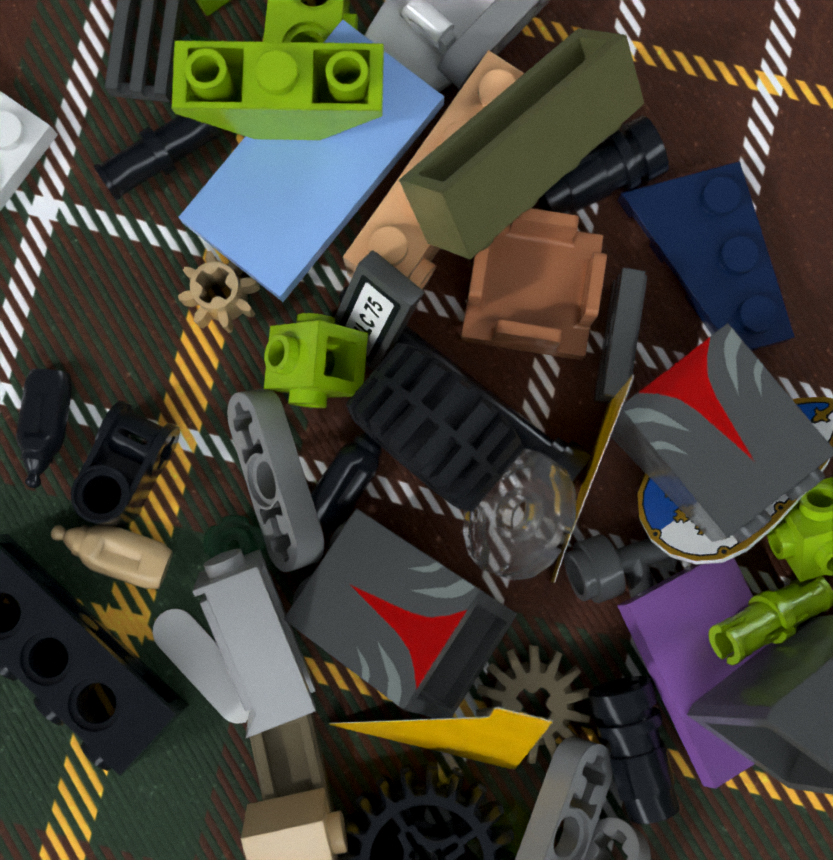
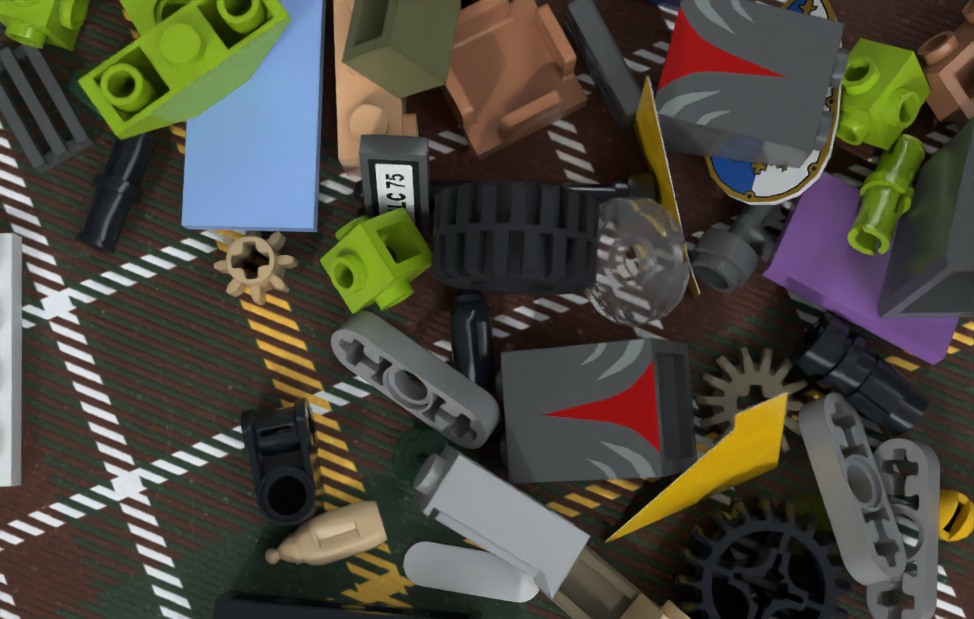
camera: 35 degrees left, 0 degrees up
(42, 420) = (189, 475): black piece -> none

